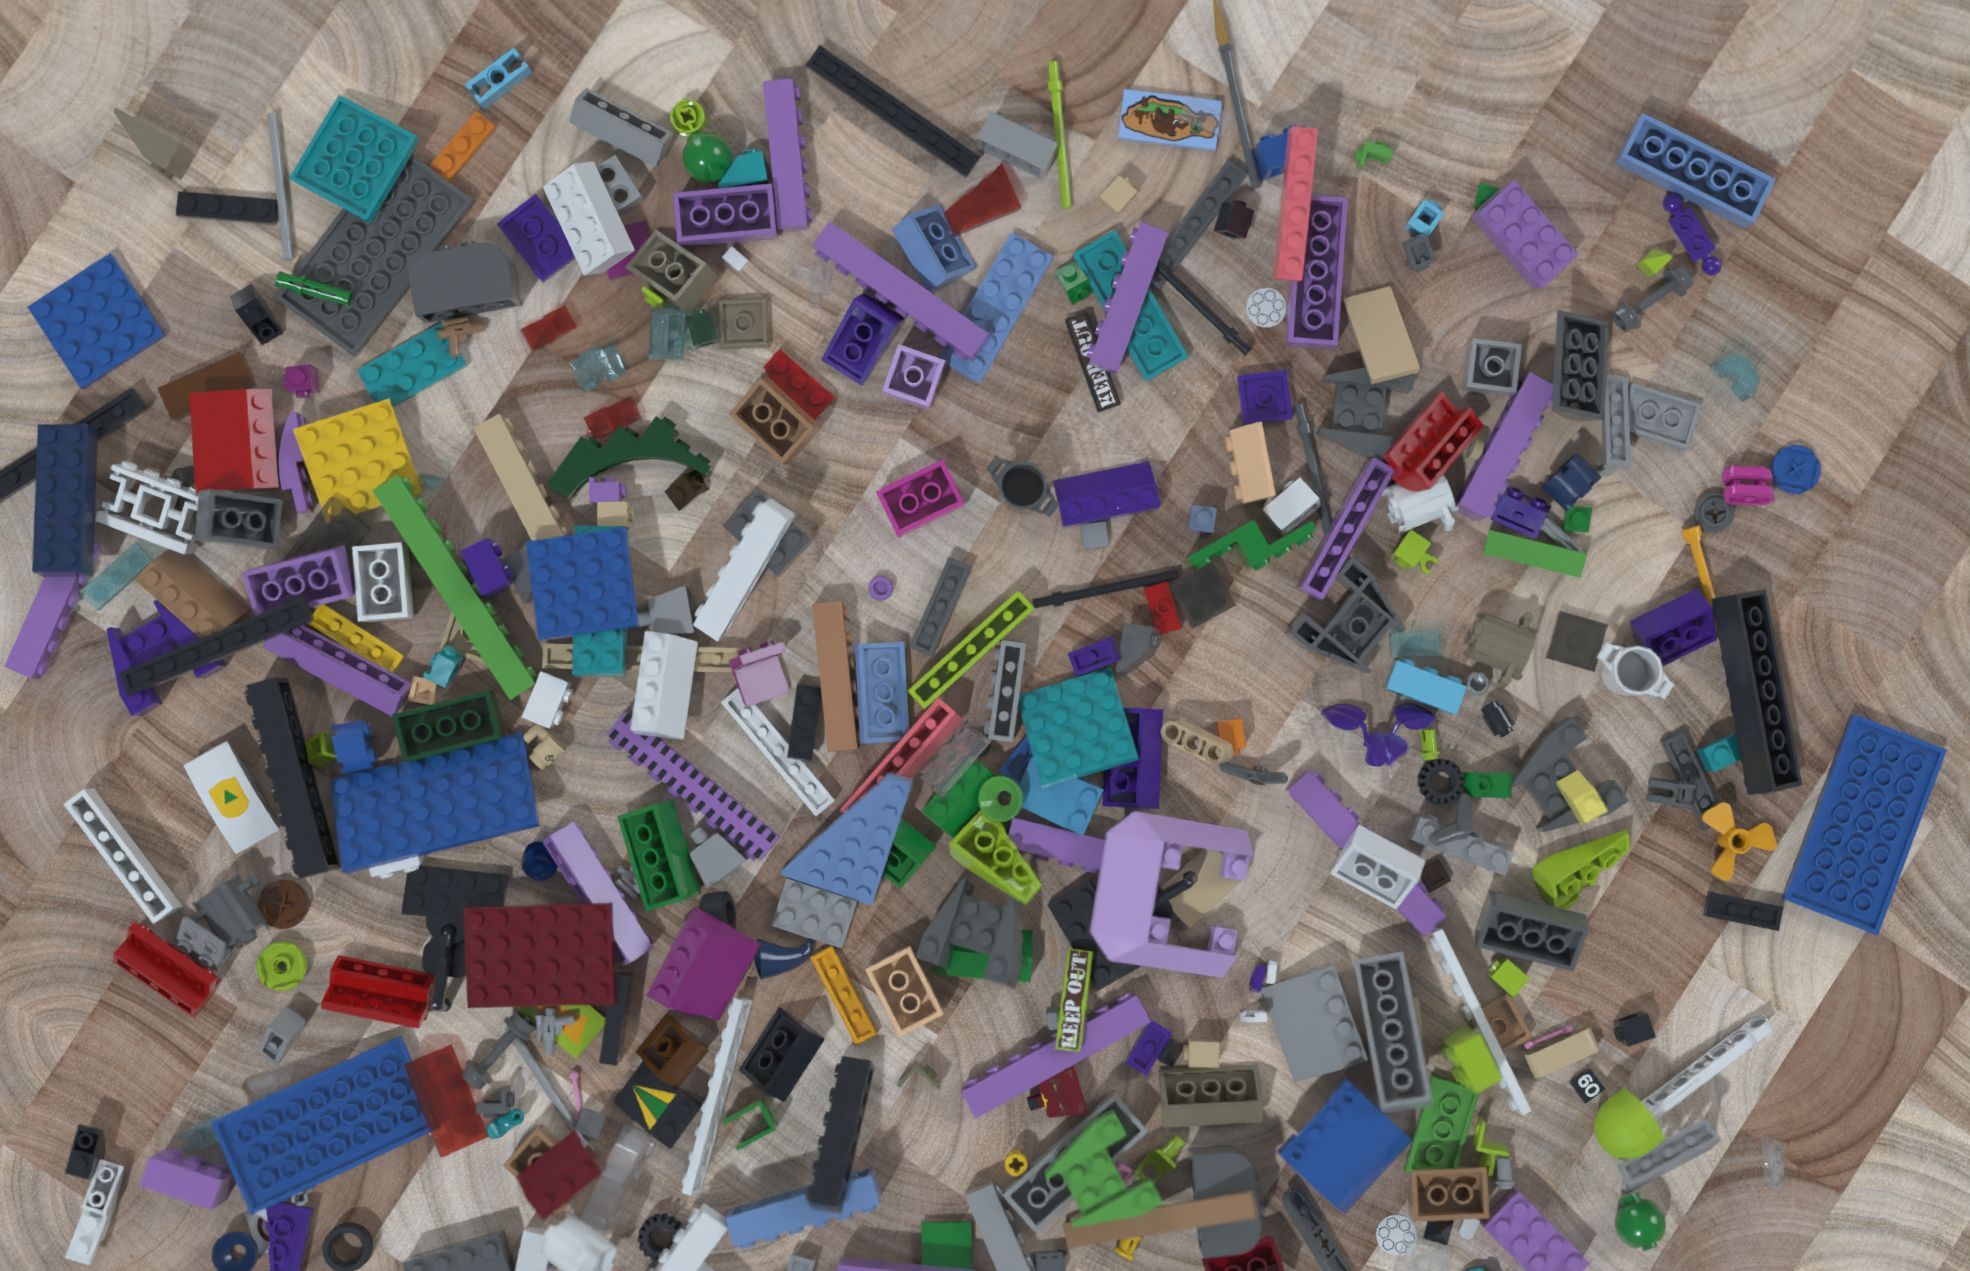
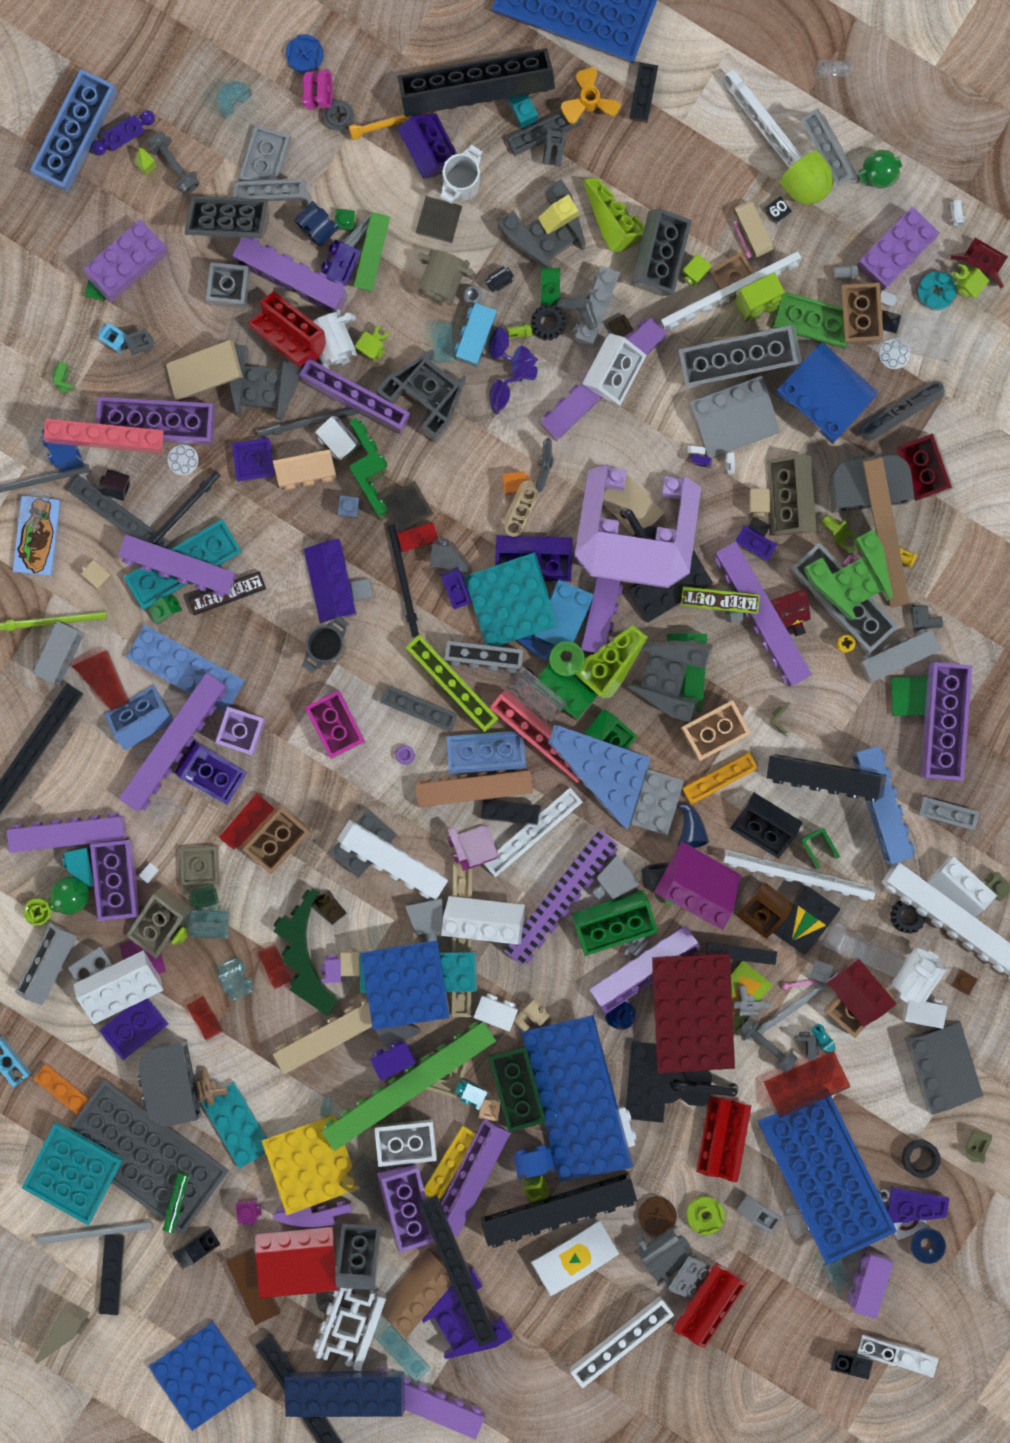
camera: 90 degrees left, 0 degrees up
(1488, 1149) = (828, 283): lime bracket -> none
(1633, 1029) = (734, 174): black brick -> none

